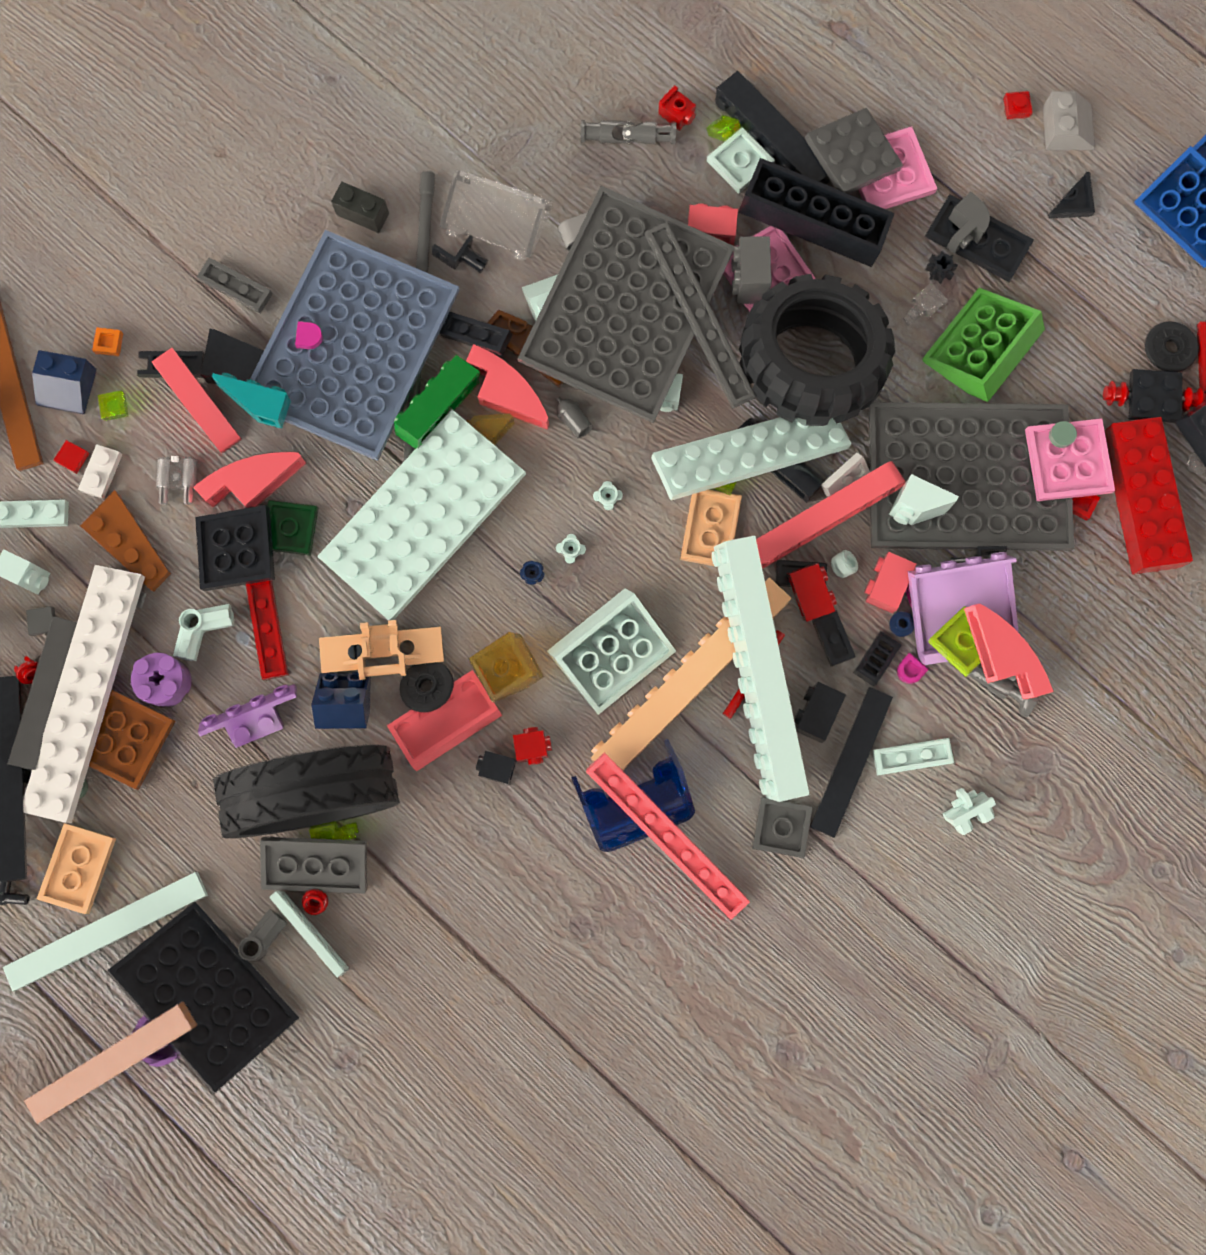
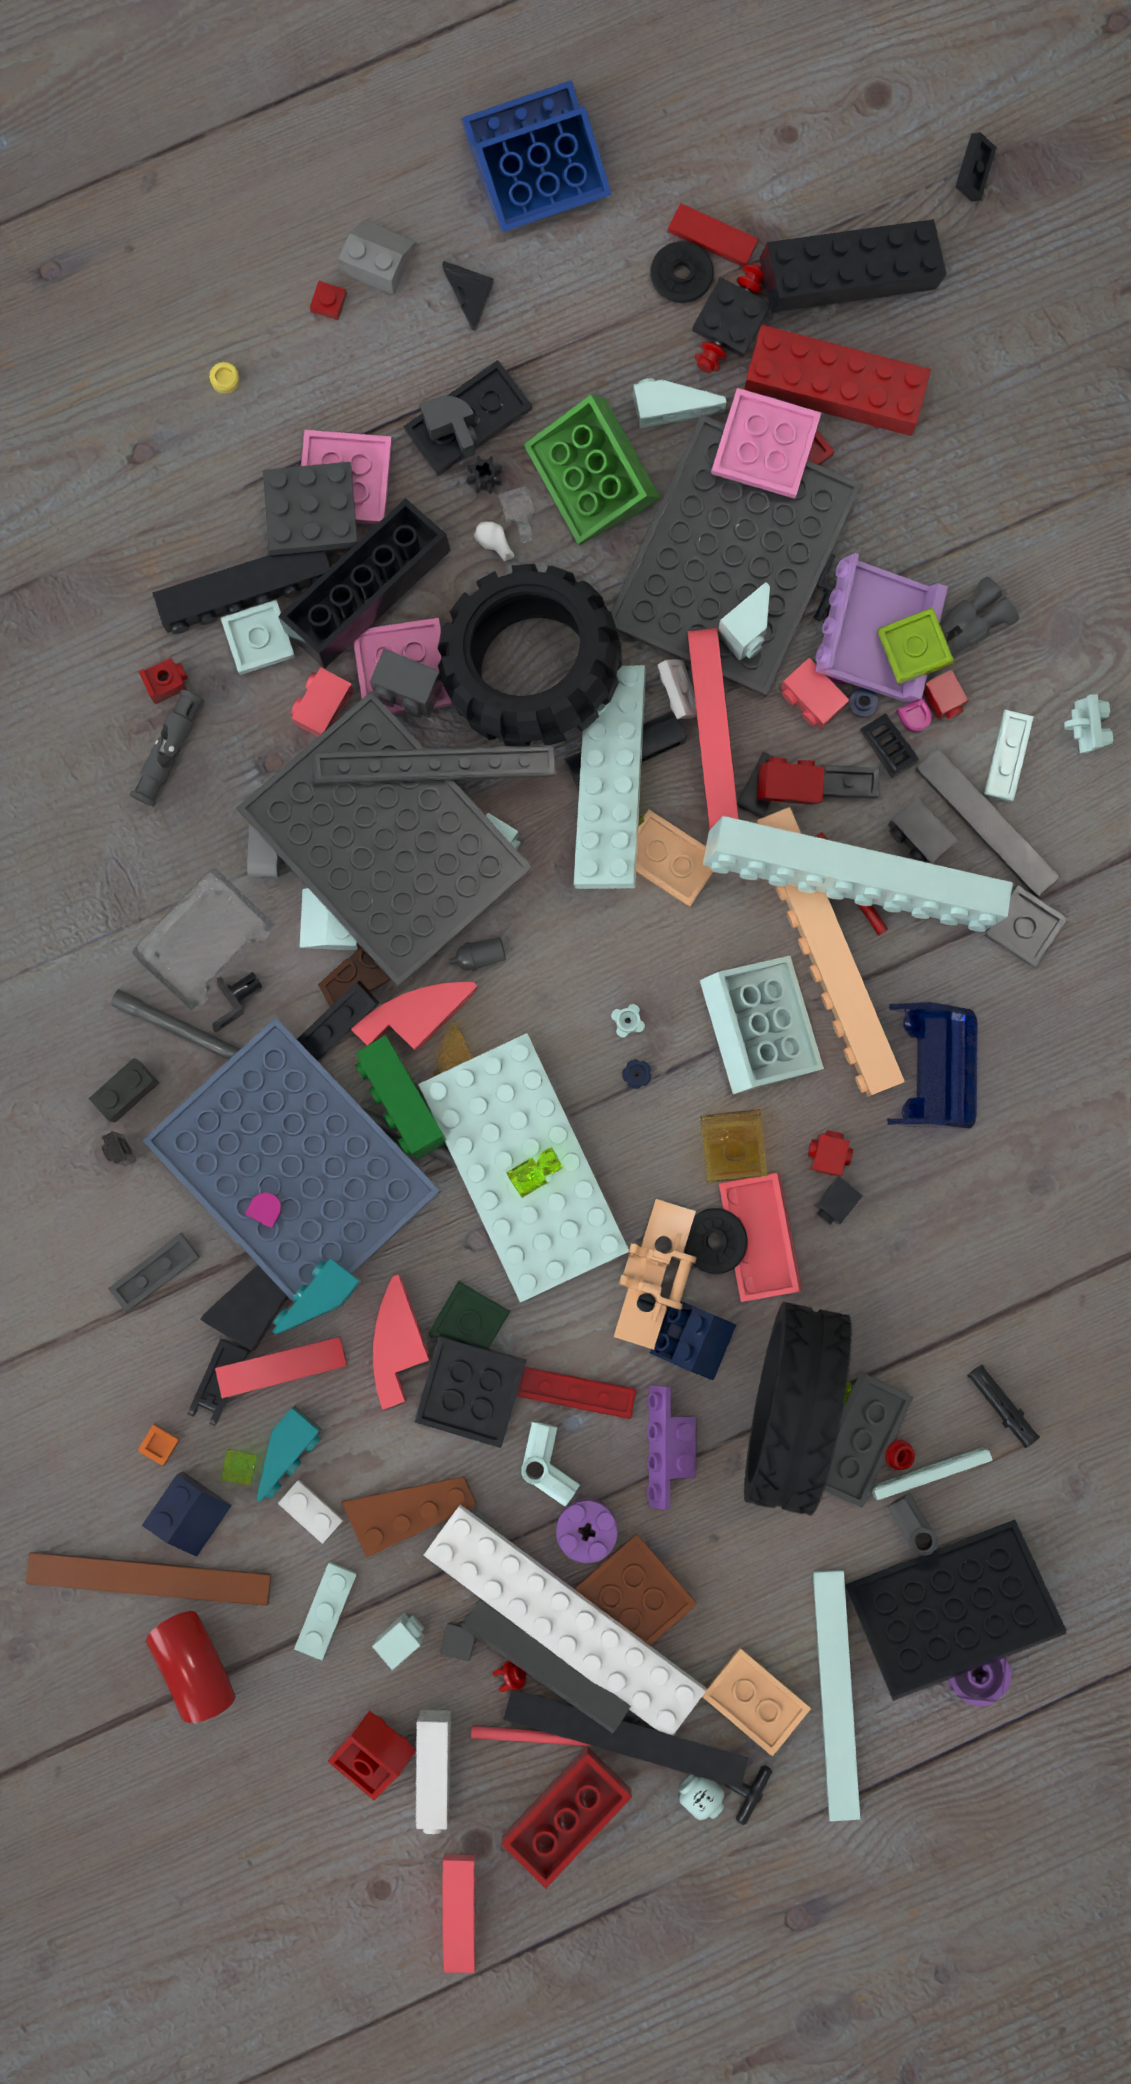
camera: 65 degrees left, 5 degrees up
(71, 456) = (278, 1538): red tile -> none
(110, 1062) = (987, 1733): tile -> none
(140, 431) = (287, 1442): none -> teal slope
(176, 474) = (353, 1424): clear piece -> none
(313, 218) = (117, 1149): none -> clear smoke plate
(386, 971) = (1026, 1434): none -> black pin
(414, 519) = (531, 1174): none -> clear neon green plate
(608, 488) = (577, 953): light aqua plate -> none
(667, 835) = (988, 1049): coral plate -> none
(723, 128) = (210, 639): clear neon green plate -> none
(844, 564) = (772, 733): light aqua tile -> none
(896, 295) = (492, 537): none -> white animal
(923, 58) = (224, 377): none -> light yellow tile
(937, 684) = (945, 696): none -> brick
(1006, 652) = (951, 611): coral slope -> none
(1062, 434) = (738, 438): sand green tile -> none
(1065, 378) = (670, 402): none -> light aqua slope

